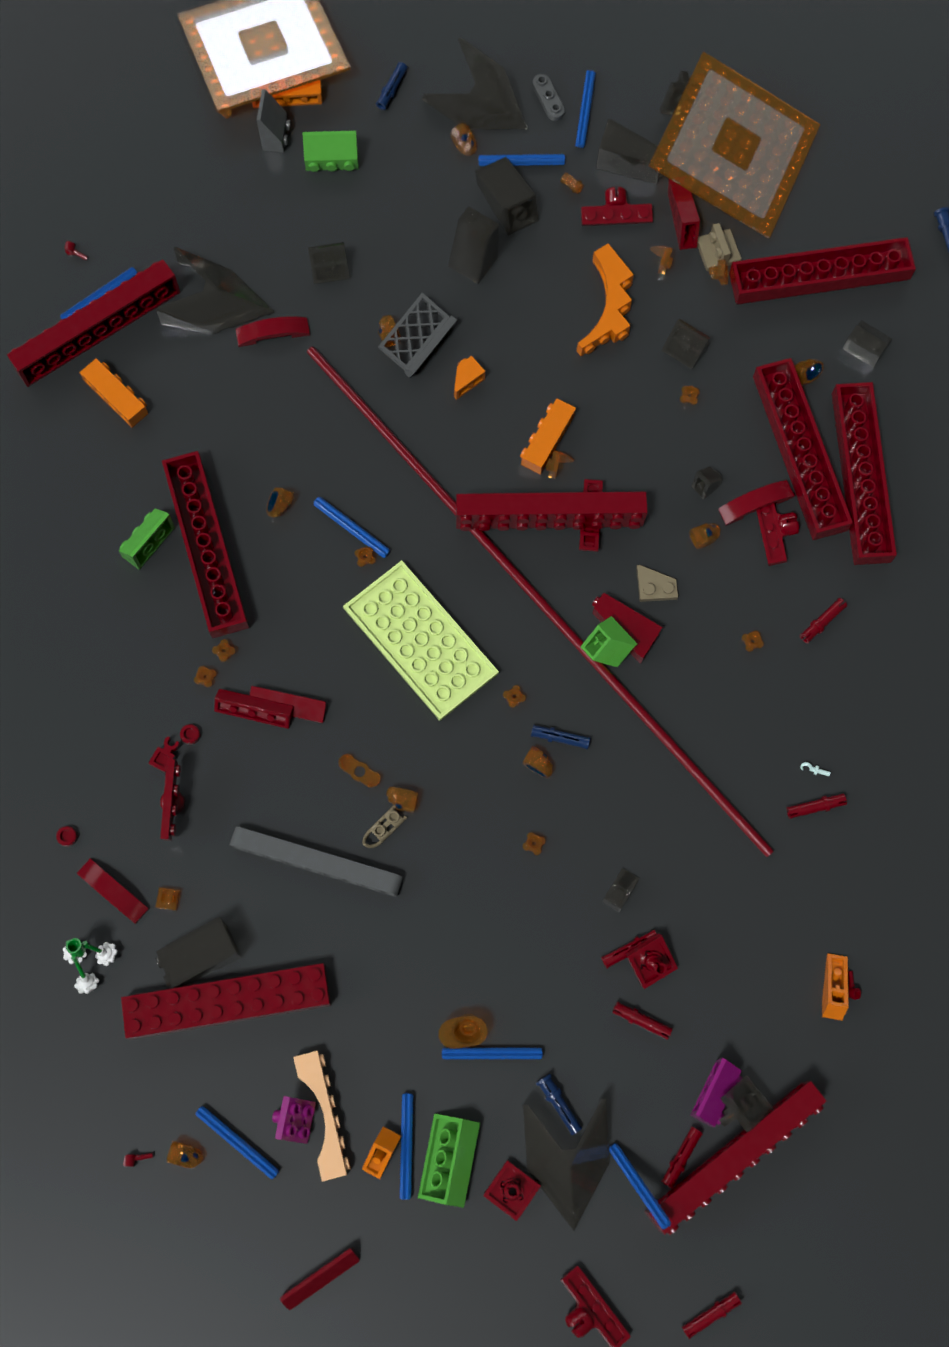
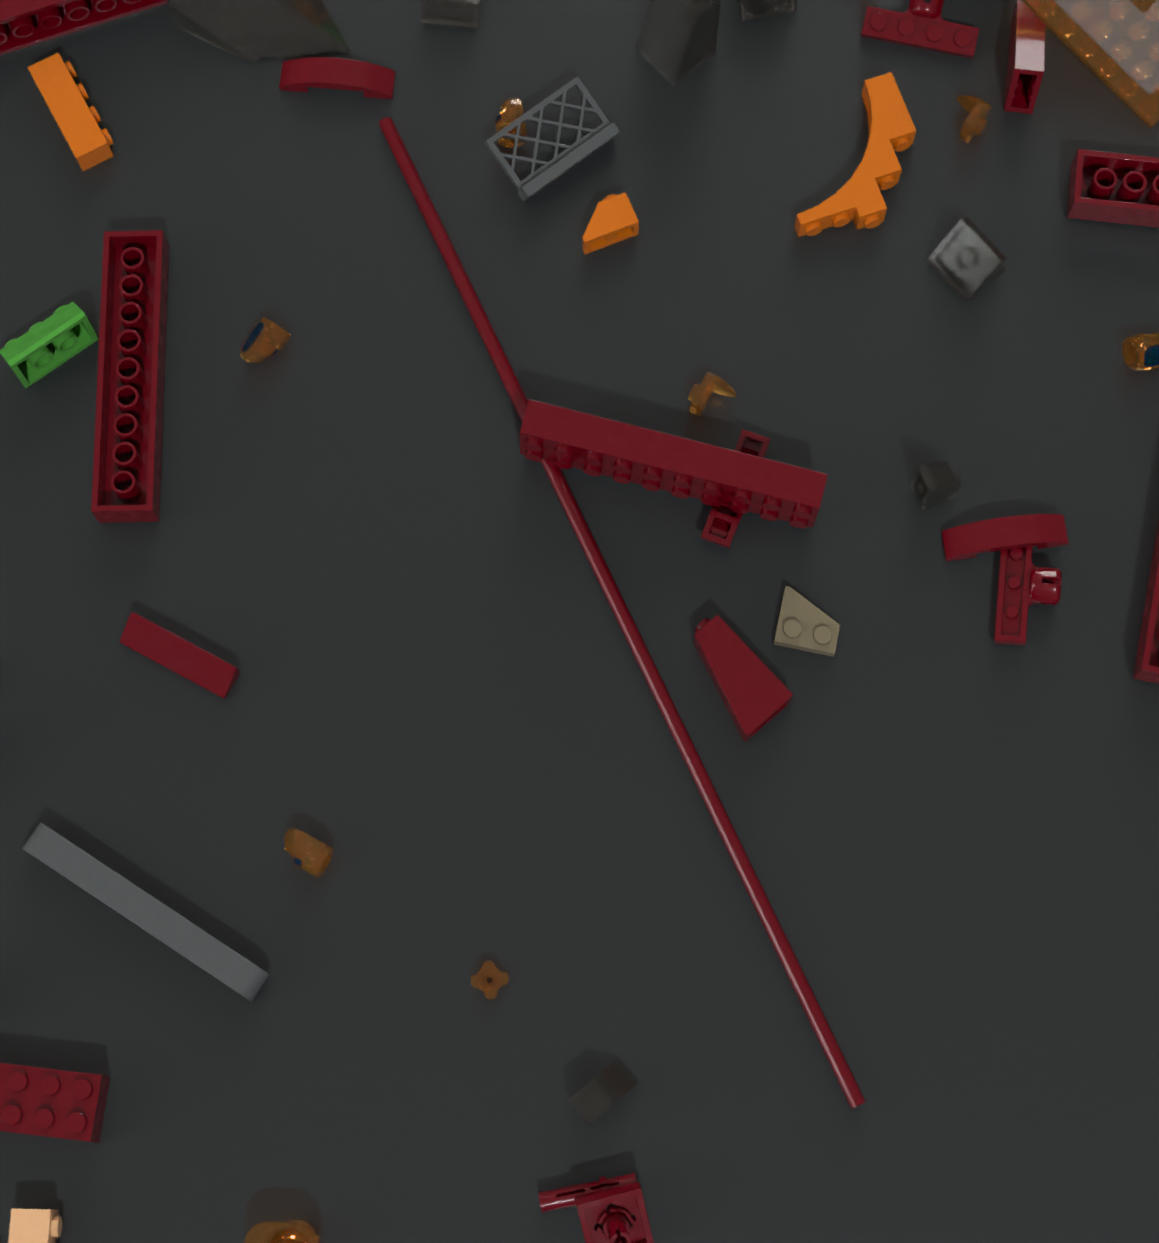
camera: 20 degrees right, 0 degrees up
(190, 734) = (19, 660): dark red tile -> none
(205, 681) = (69, 569): clear orange plate -> none
(223, 656) = (116, 551): clear orange plate -> none
(253, 708) = (125, 647): dark red slope -> none
(349, 764) = (245, 774): clear orange piece -> none
(351, 527) = (362, 408): blue axle -> none
(359, 553) = (364, 451): clear orange plate -> none
(380, 830) = (258, 891): dark tan piece -> none
(420, 640) = (413, 612): yellowish green plate -> none
(514, 701) = (525, 747): clear orange plate -> none
(538, 762) = (535, 853): clear orange rock -> none
(548, 435) = (707, 347): orange brick -> none
(559, 736) = (549, 804): dark blue pin -> none
(609, 643) = (700, 697): bright green slope -> none
(689, 390) = (953, 333): clear orange plate -> none
(704, 535) = (907, 566): clear orange rock -> none
(718, 246) = (1064, 123): dark tan bracket -> none
(720, 272) = (1056, 161): clear orange tile -> none
(755, 635) = (939, 749): clear orange plate -> none
(802, 449) = (1103, 473): dark red brick -> none
(815, 769) = (972, 990): light aqua hand -> none
(817, 626) = (1045, 760): dark red pin -> none
(825, 803) = (956, 1049): dark red pin -> none

